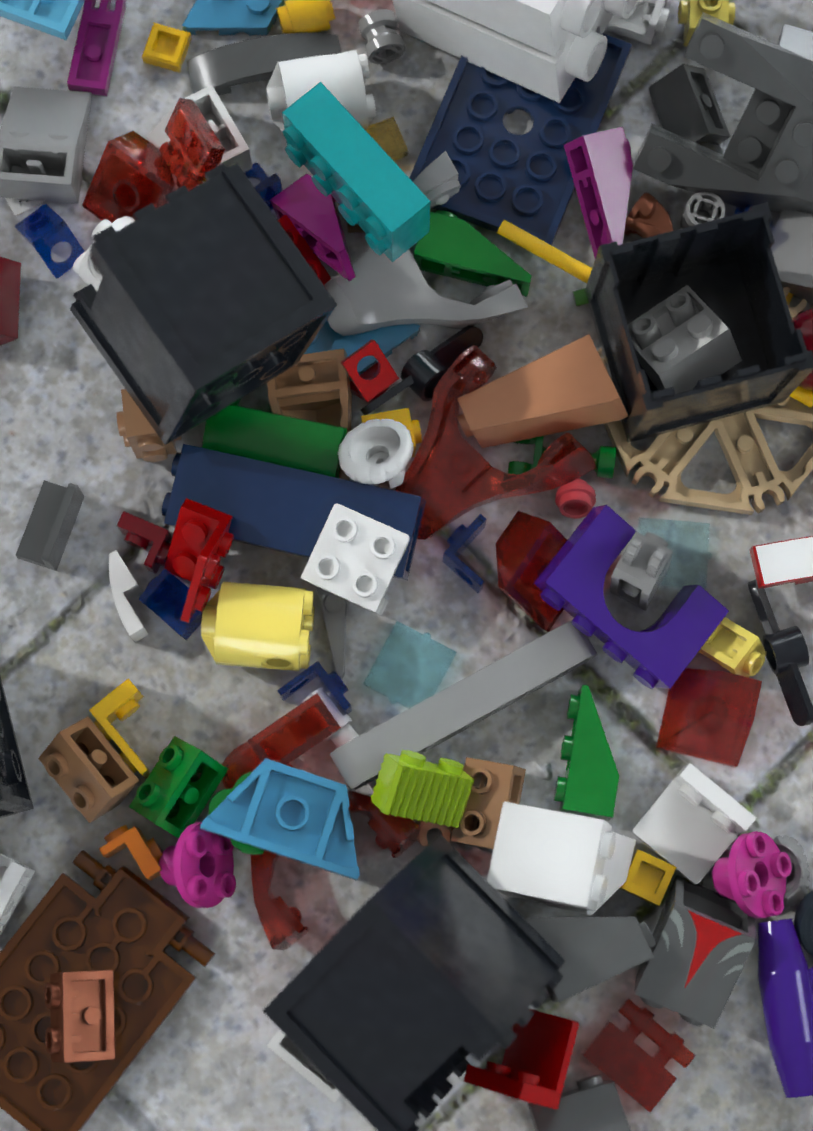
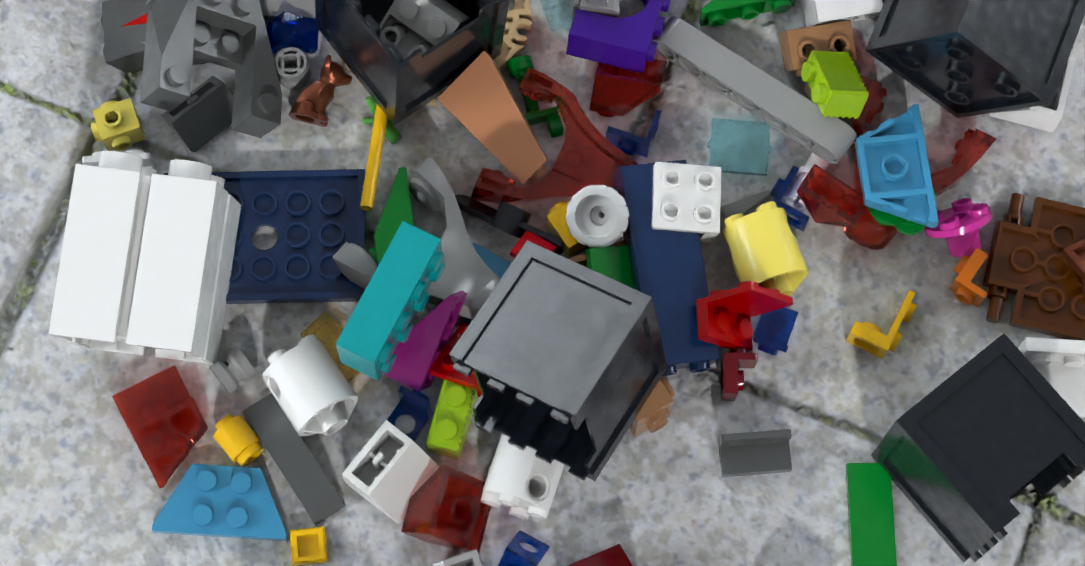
camera: 110 degrees left, 5 degrees down
(88, 769) = (929, 333): medium nougat brick -> none
(123, 589) = (781, 373): white slope -> none
(178, 787) = (911, 264): green brick -> none
(192, 145) = (410, 458): clear red plate -> none
(575, 499) = (560, 73): coral plate -> none
(602, 180) = (300, 145): slope -> none

